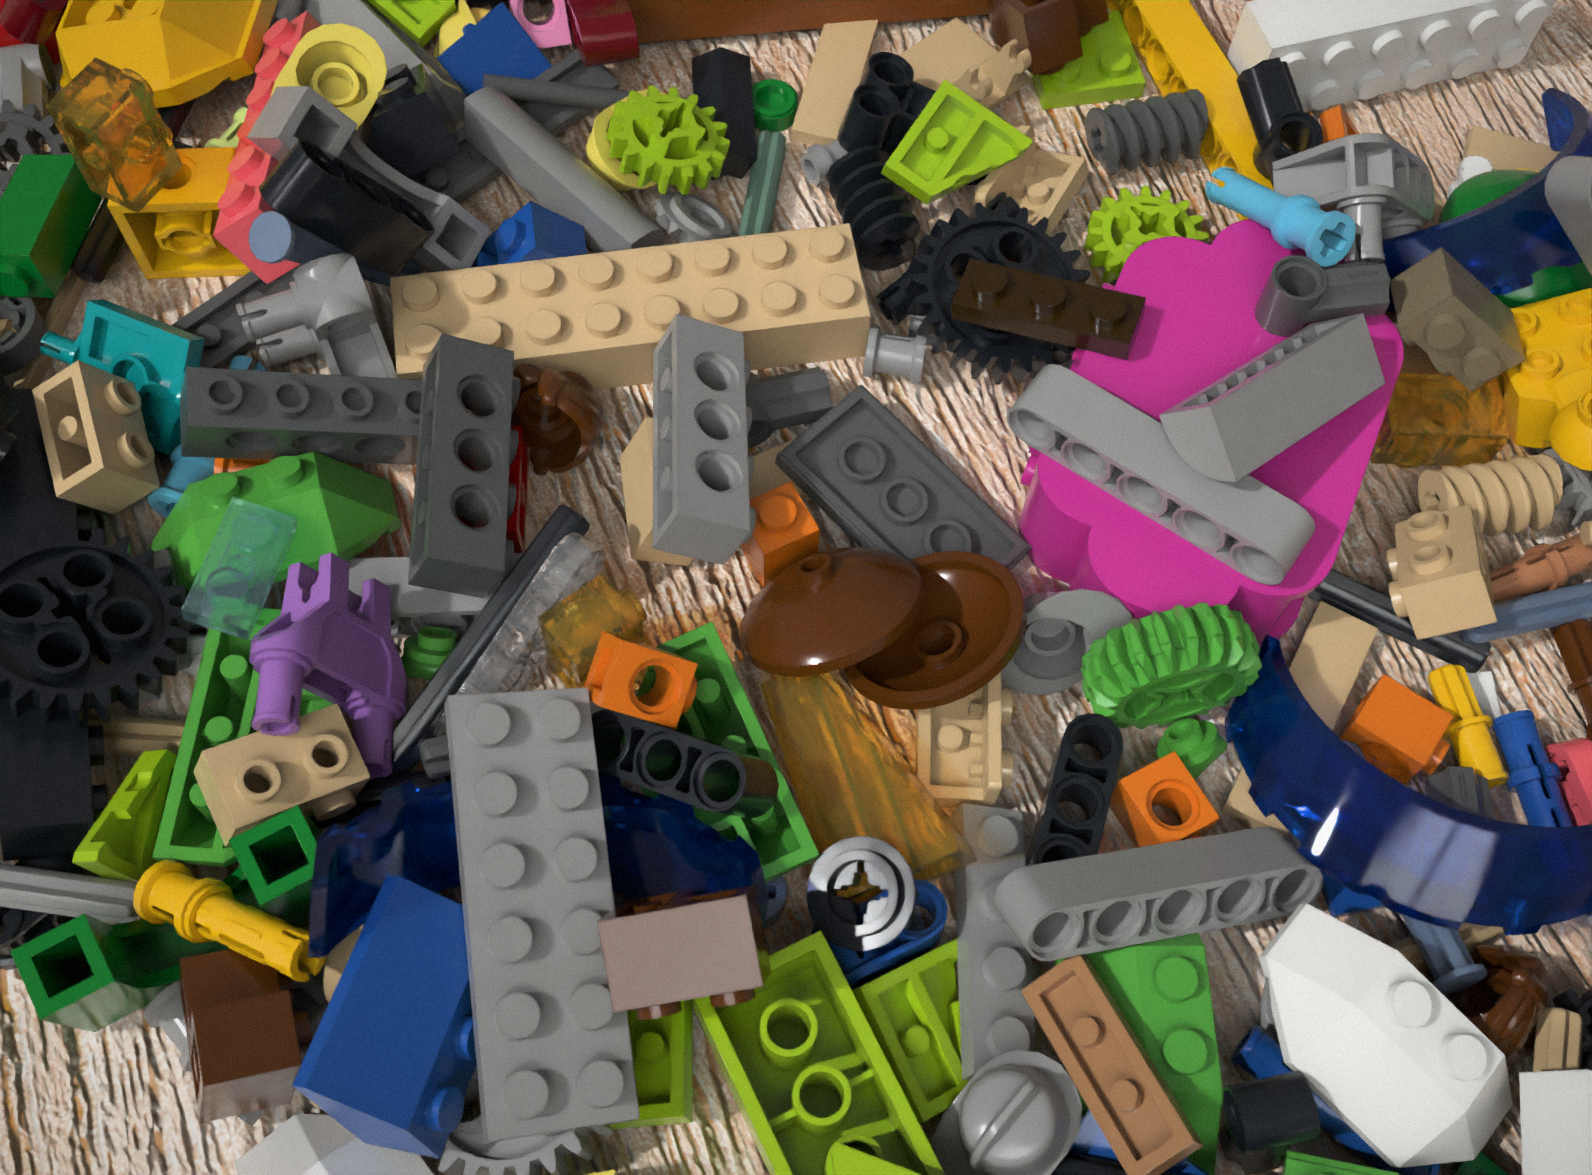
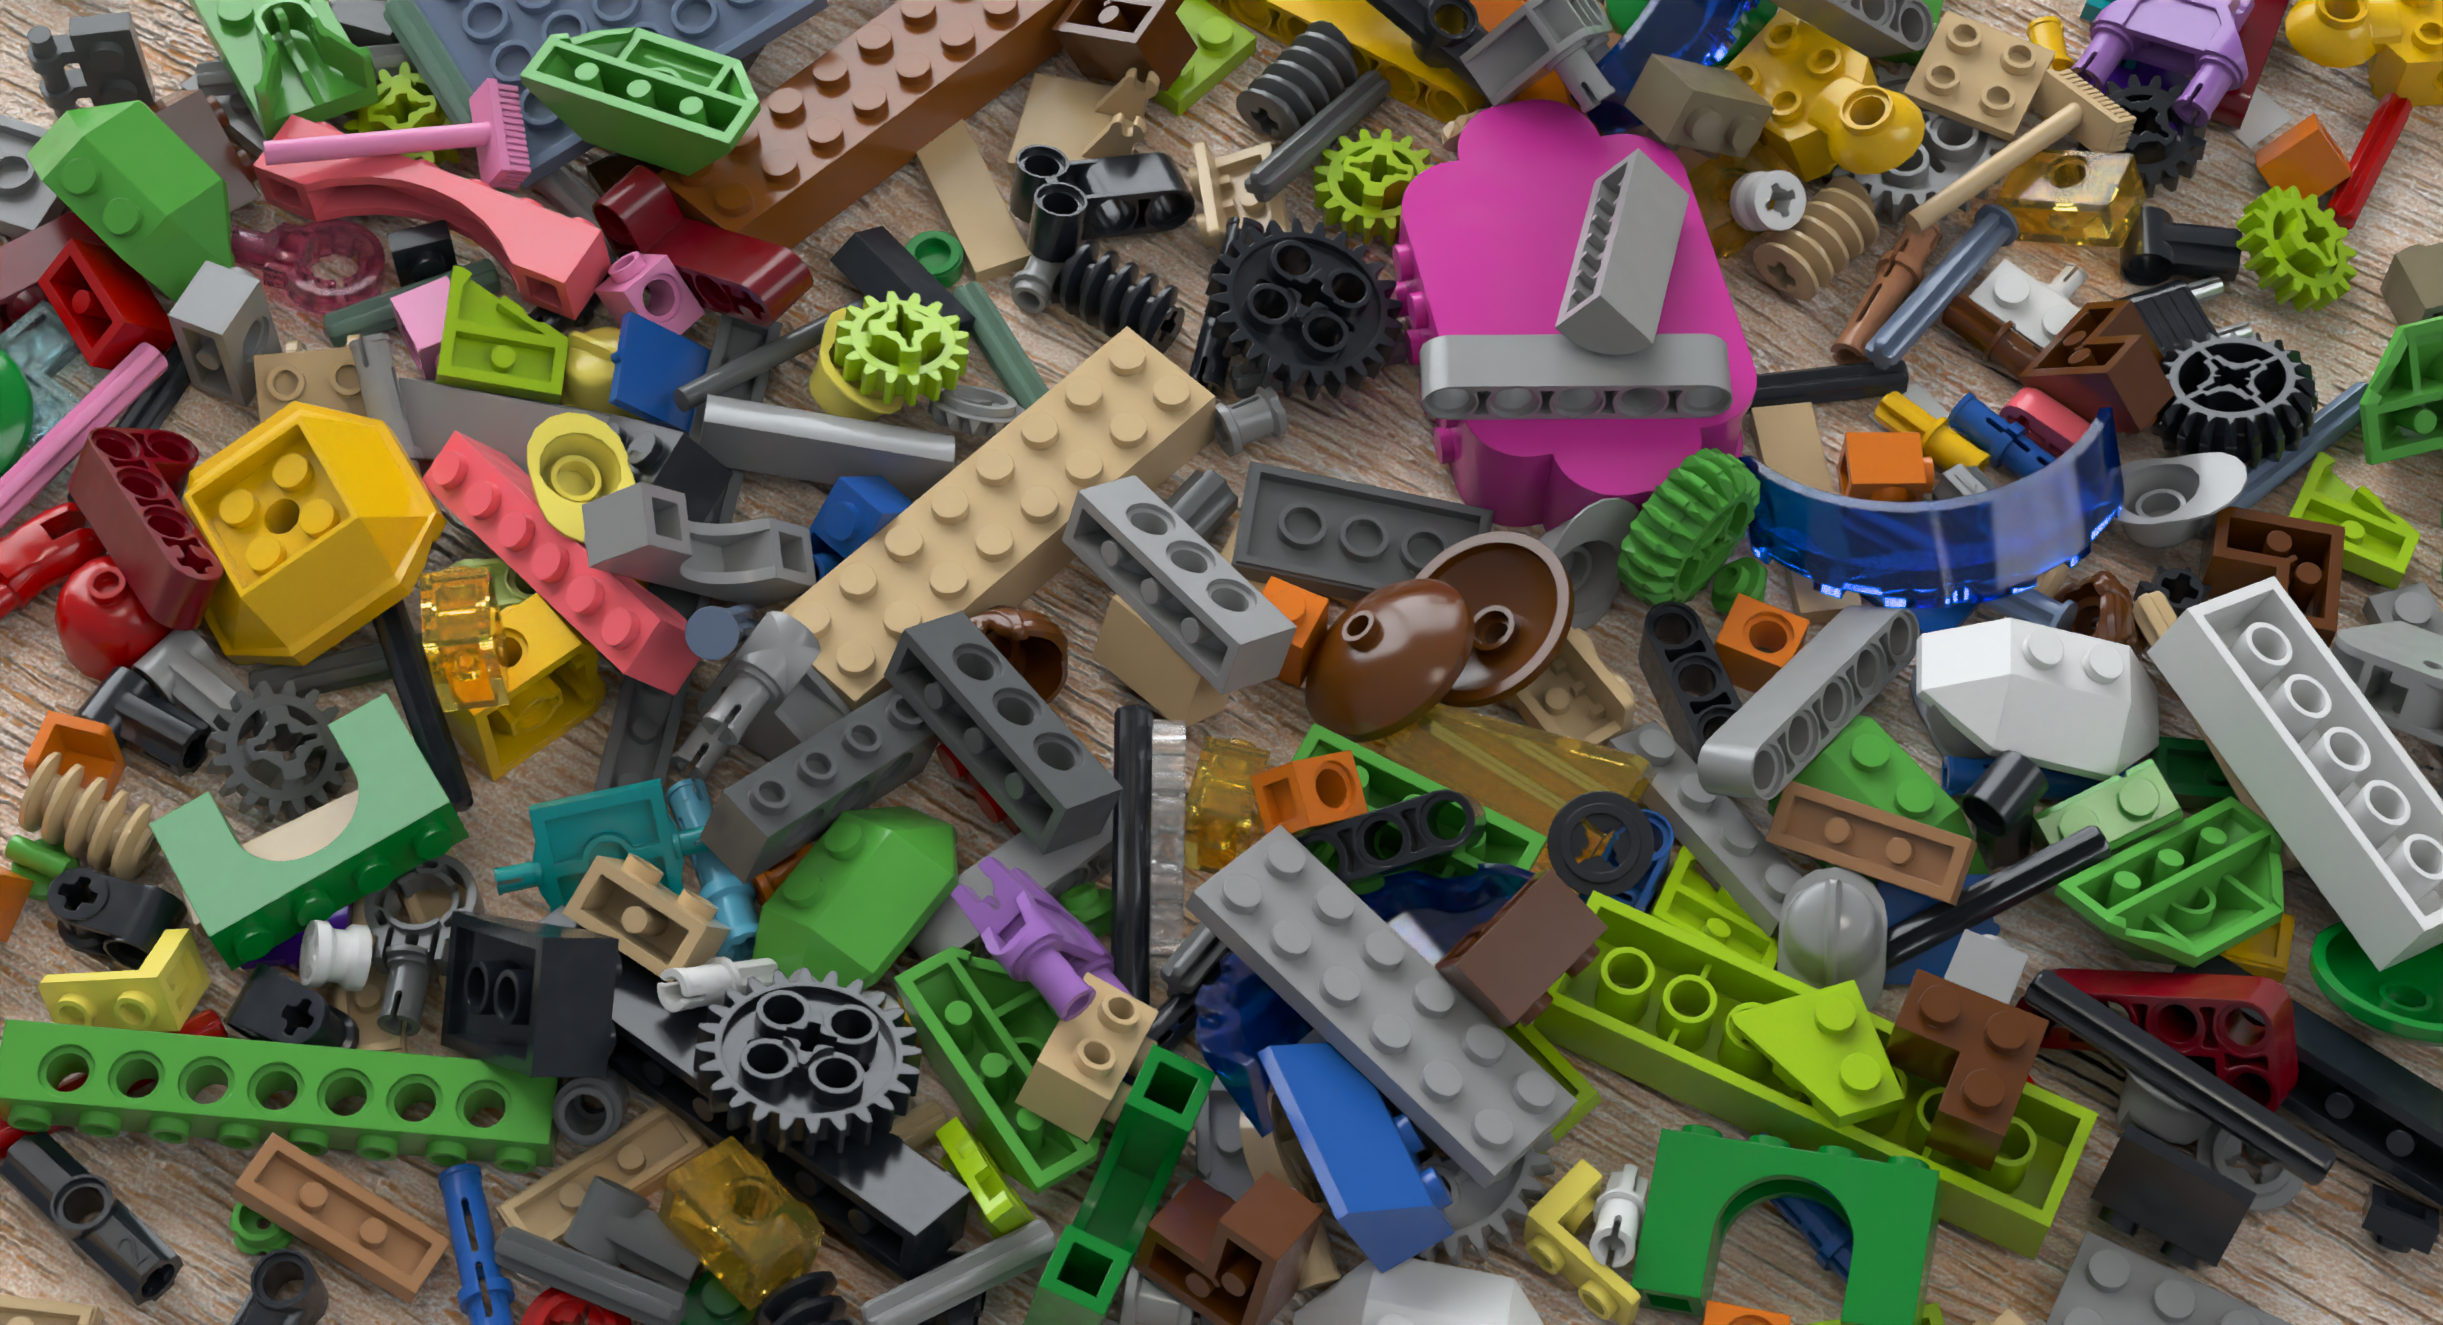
camera: 35 degrees left, 5 degrees down
(65, 508) = (708, 982): none -> white axle
(209, 912) = (1127, 1187): yellow pin -> none
(239, 568) = (897, 931): clear light blue plate -> none
(346, 208) = (726, 574): black beam -> none
(952, 146) = (1159, 201): lime wing -> none
(1048, 308) = (1374, 296): dark brown plate -> none
(1133, 173) = (1316, 135): none -> dark grey axle
(1292, 220) = (1518, 100): medium azure pin -> none
(1306, 292) = (1580, 153): dark grey piece -> none
(1441, 573) = (1829, 324): tan brick -> none
(1451, 426) = (1752, 198): none -> white wheel

